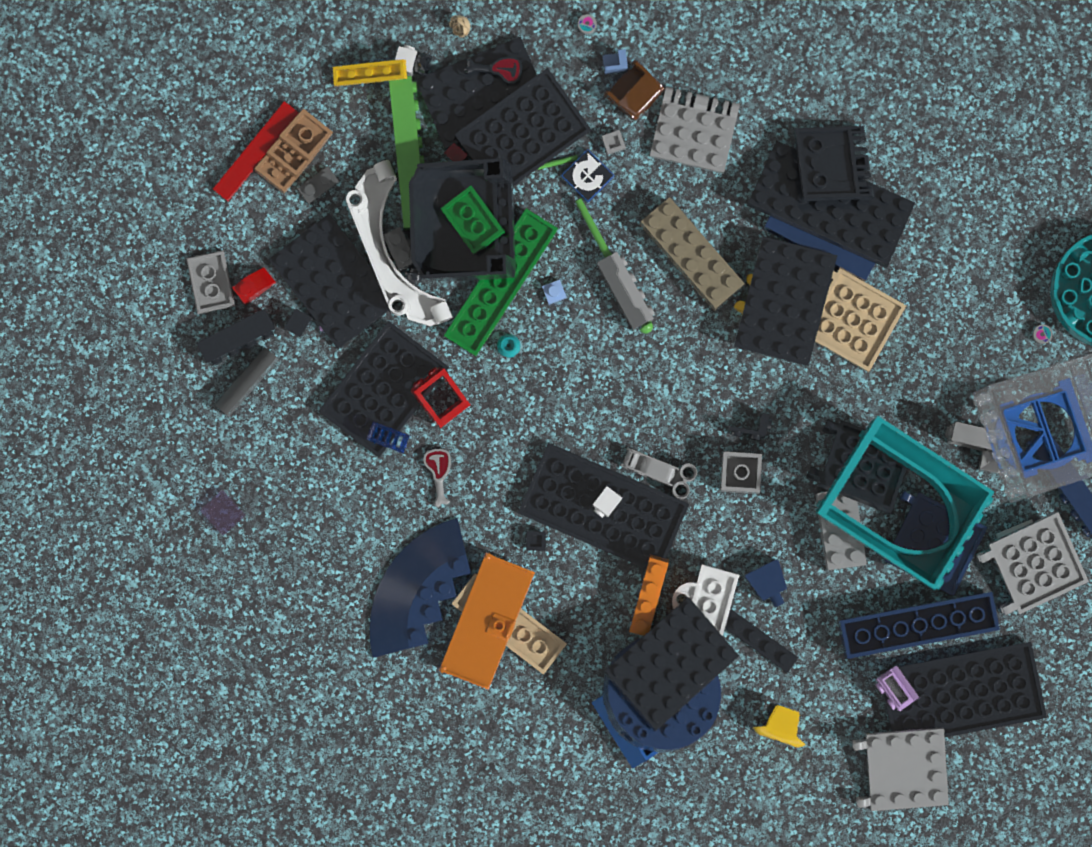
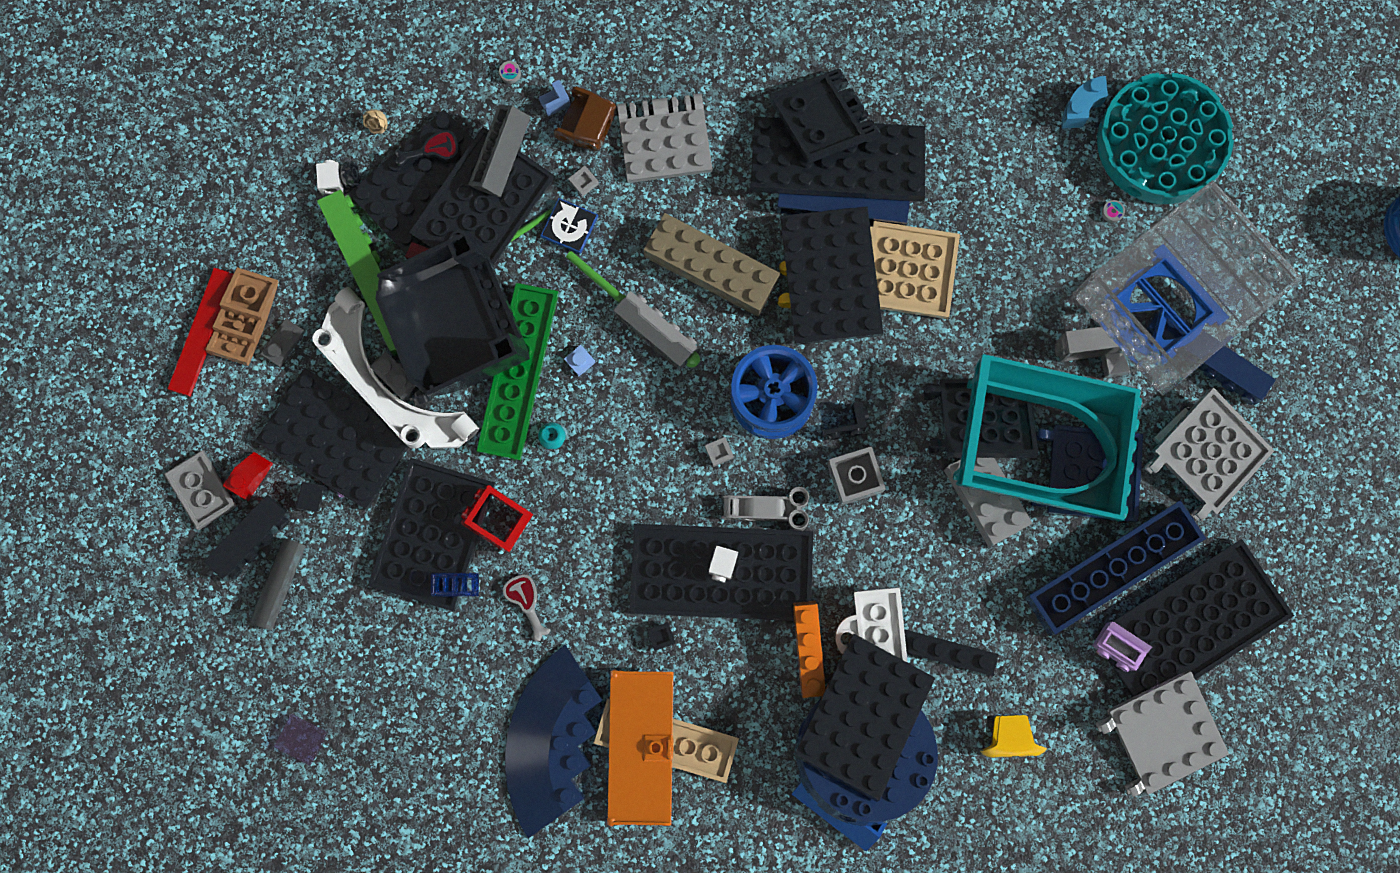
camera: 20 degrees left, 5 degrees down
(369, 72) = (294, 202): yellow plate -> none
(472, 220) = (461, 314): green plate -> none
(553, 93) = (499, 150): none -> dark grey brick
(638, 410) = (719, 451): none -> light grey plate
(699, 351) = (796, 368): none -> blue wheel
(768, 582) = (932, 584): dark blue torso -> none
(1056, 231) = (1085, 98): none -> dark azure brick

